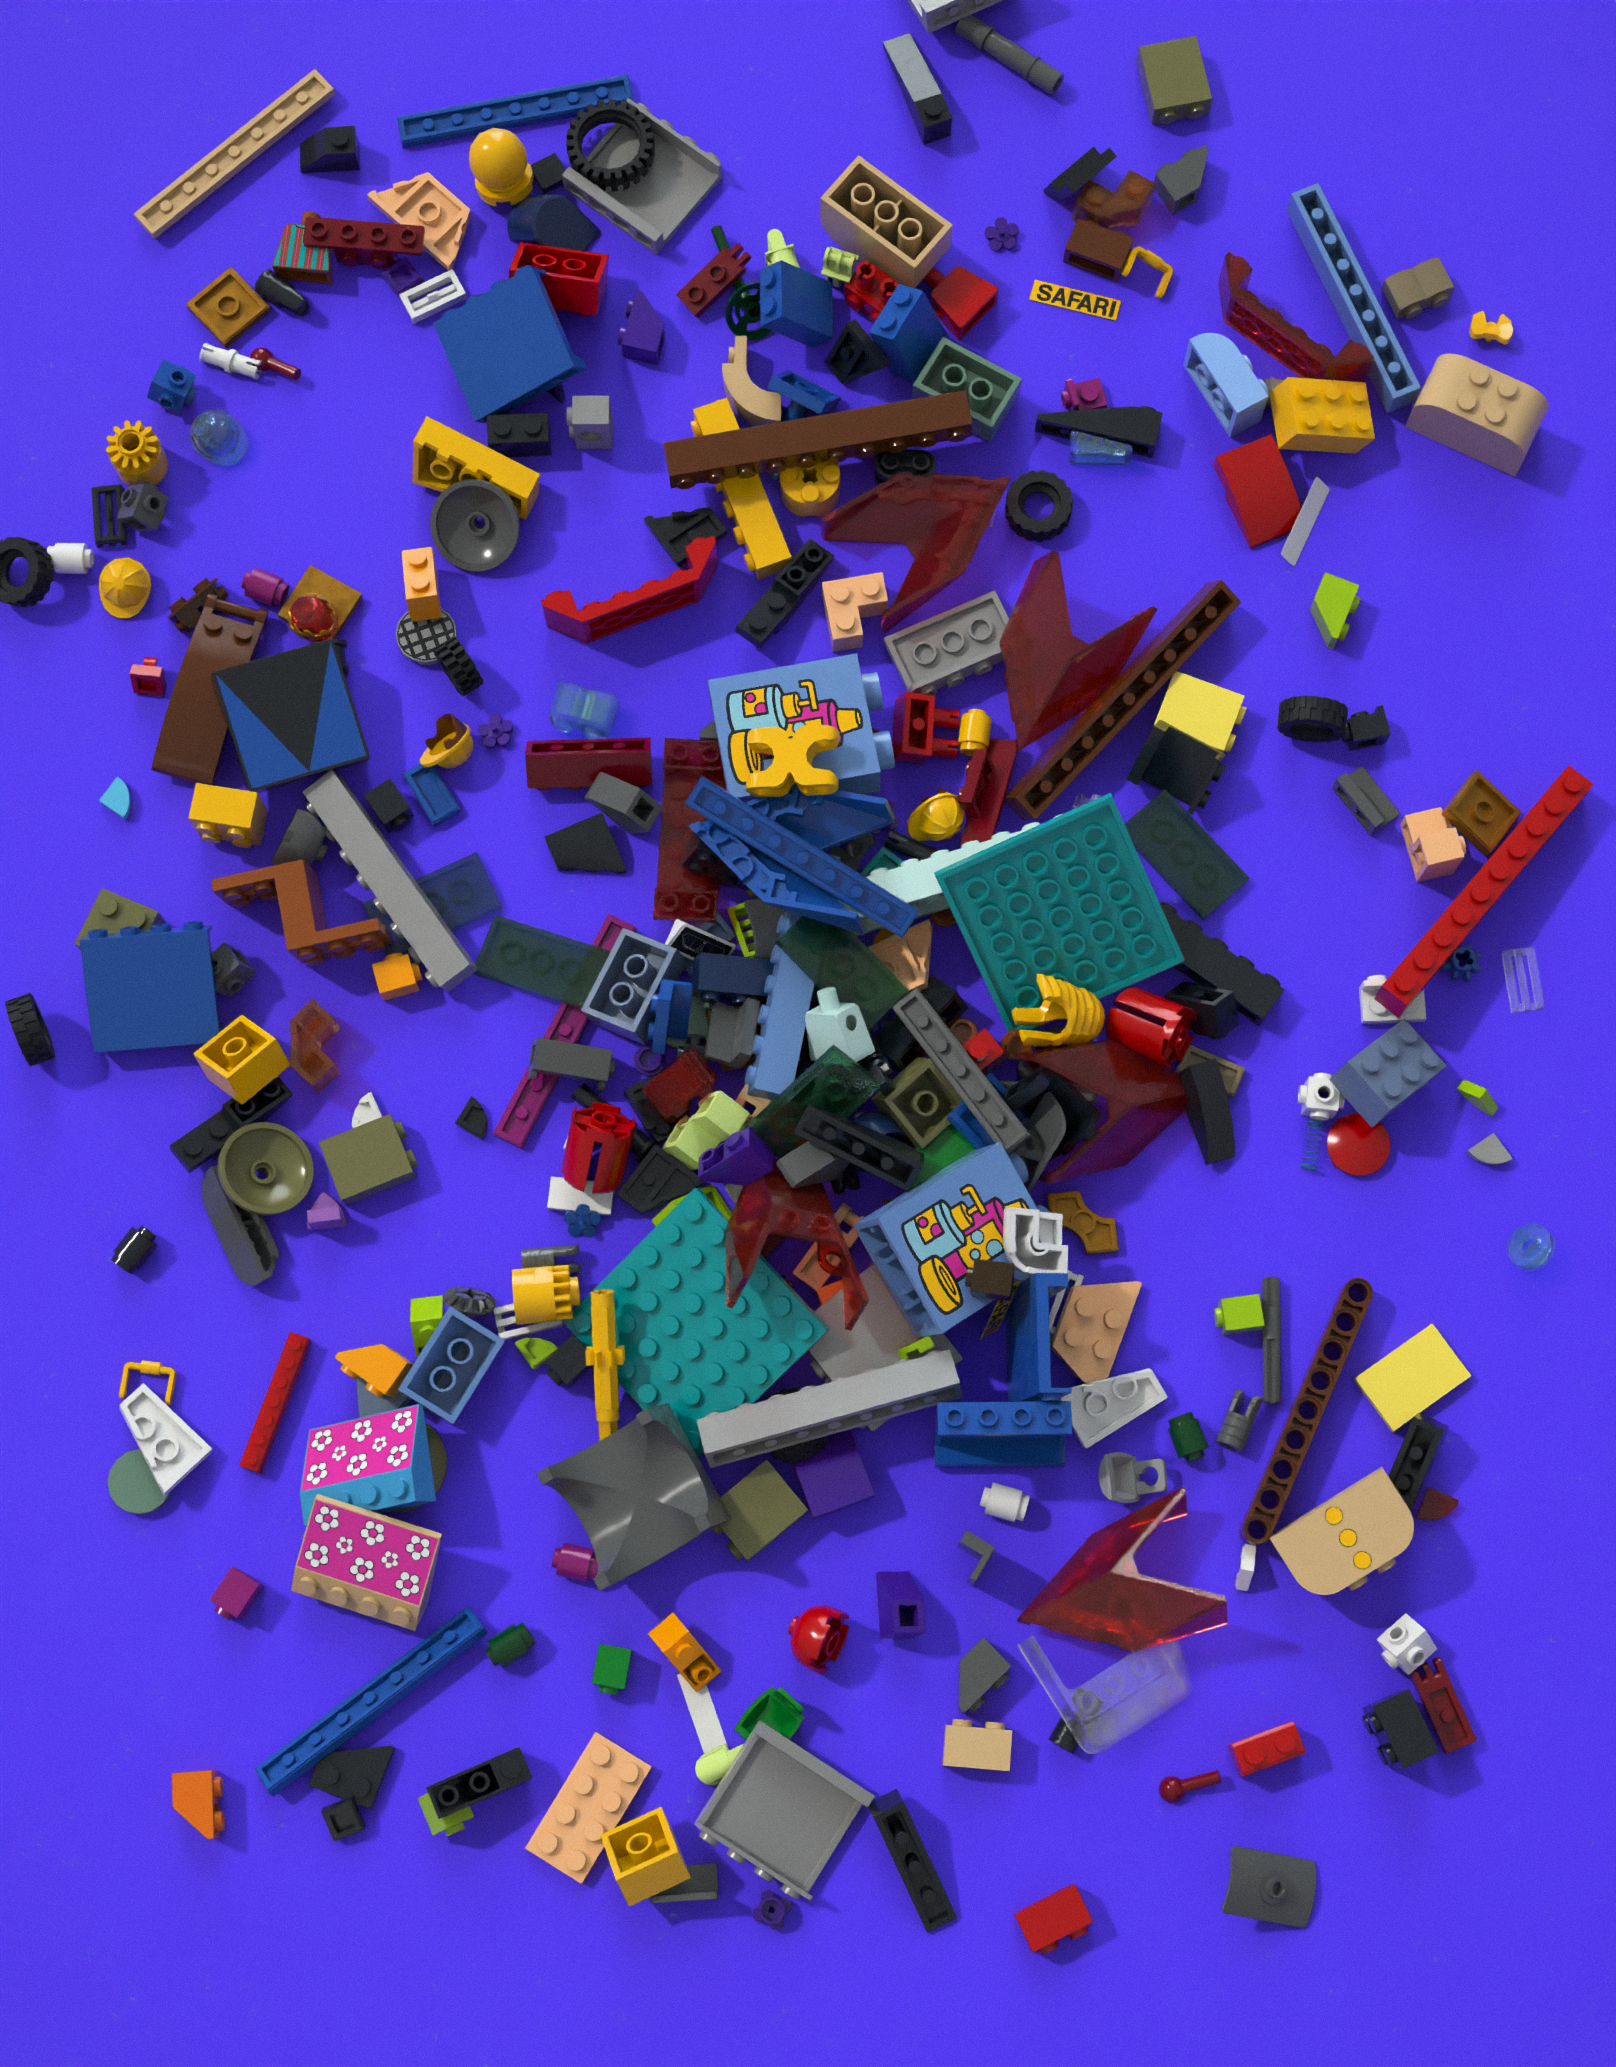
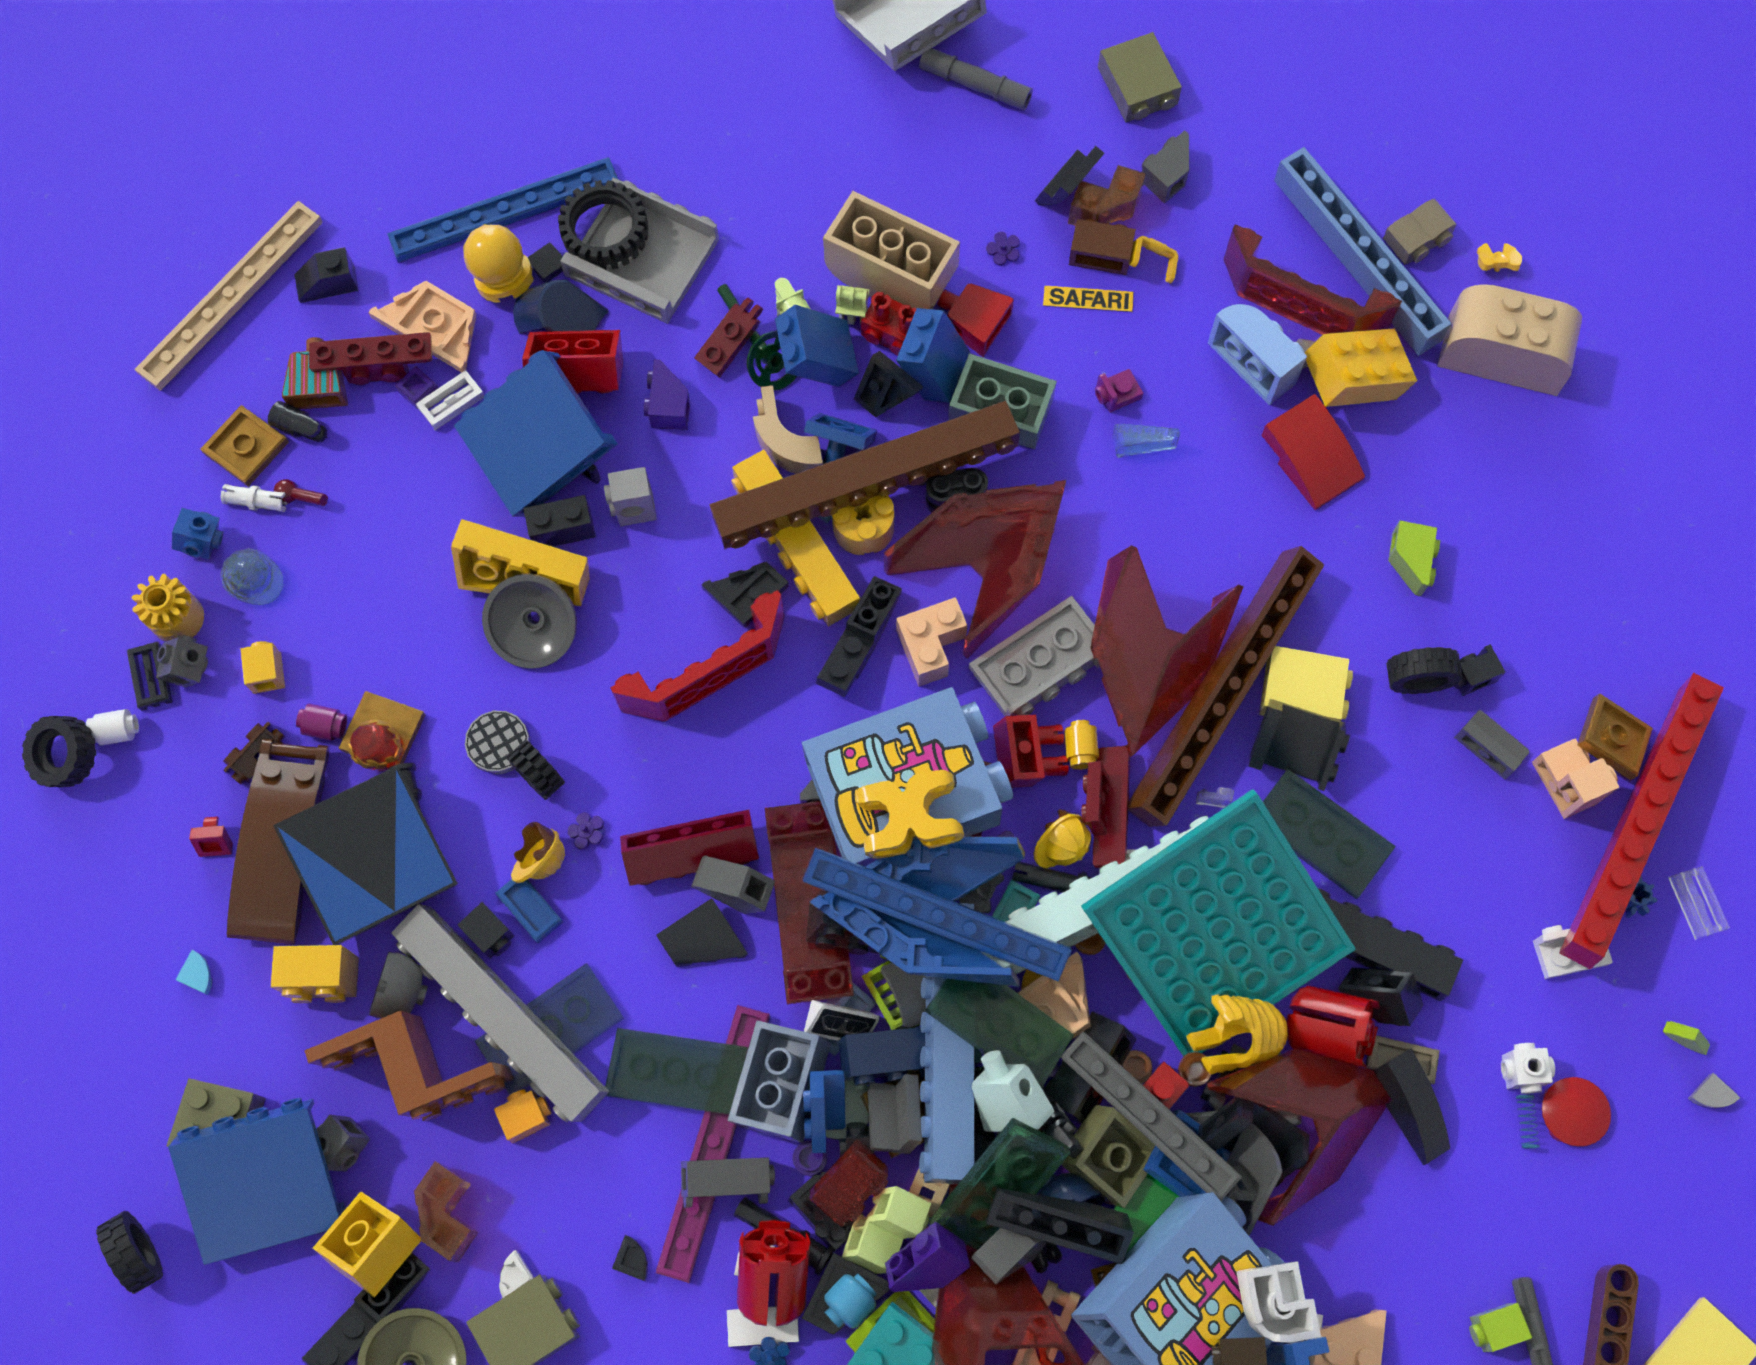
camera: 10 degrees left, 5 degrees down
(124, 587) = (174, 747): yellow piece -> none
(217, 526) = (262, 667): none -> yellow brick
(421, 584) = (483, 691): light orange brick -> none
(583, 711) = (674, 793): clear light blue brick -> none
(661, 1184) = (850, 1301): none -> dark azure head
(919, 89) = (896, 125): slope -> none
(1044, 483) = (1103, 481): black tyre -> none
(1095, 1232) = (1322, 1261): pearl gold tile -> none
(1121, 424) = (1165, 409): black slope -> none
(1305, 521) = (1364, 474): white sticker -> none
(1387, 1072) = (1594, 1031): sand blue brick -> none

